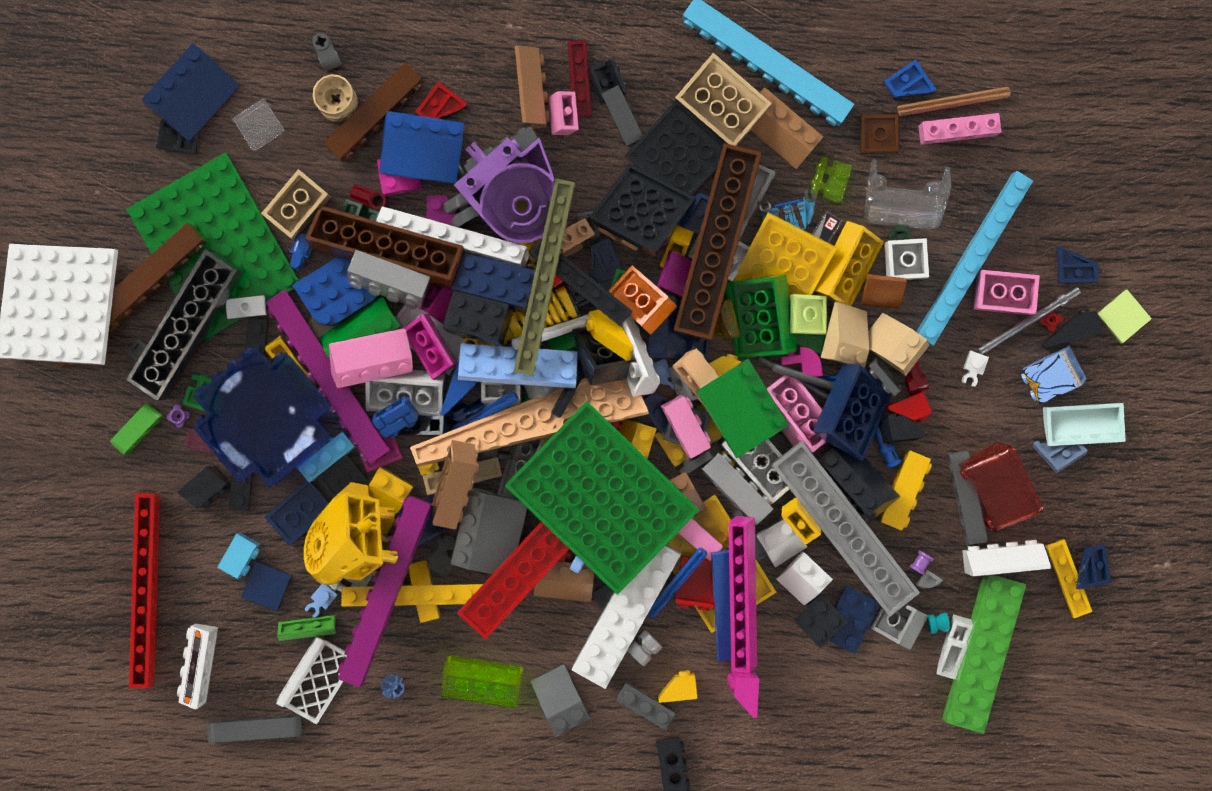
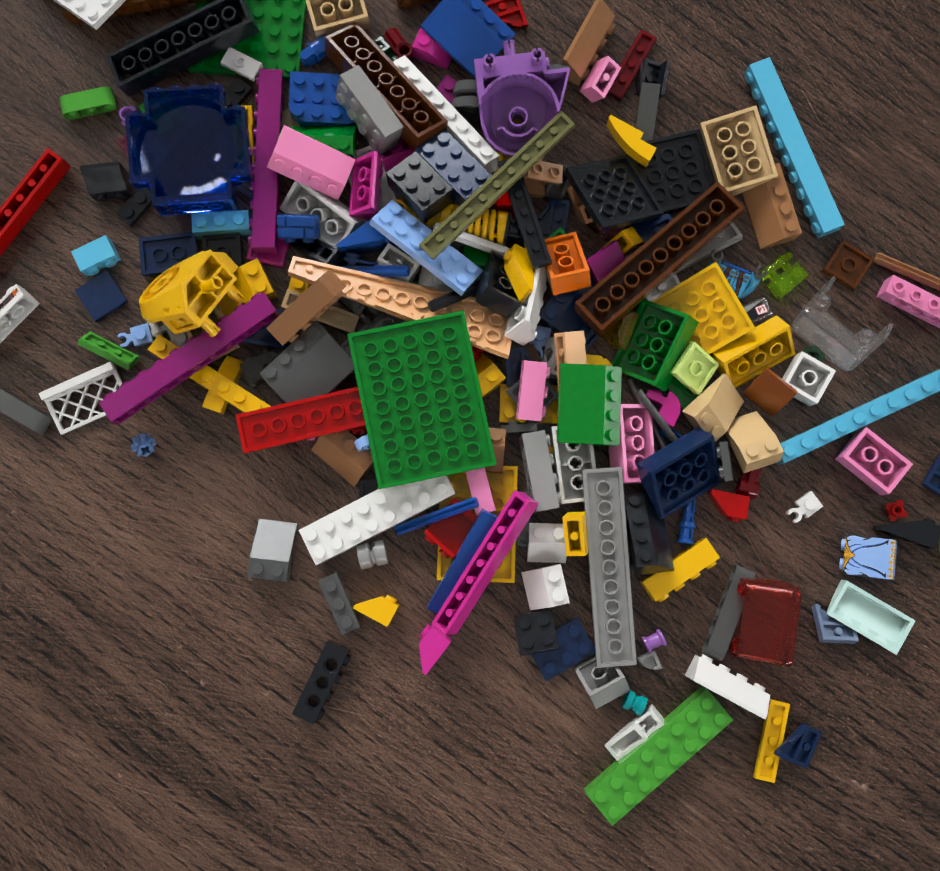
camera: 30 degrees right, 5 degrees down
(481, 681) = (218, 491): clear neon green slope -> none
(625, 152) = (630, 140): none -> yellow slope
(899, 429) = (708, 515): black slope -> none
(909, 82) = (900, 239): blue wing -> none
(1061, 300) = (915, 499): flat silver bar -> none

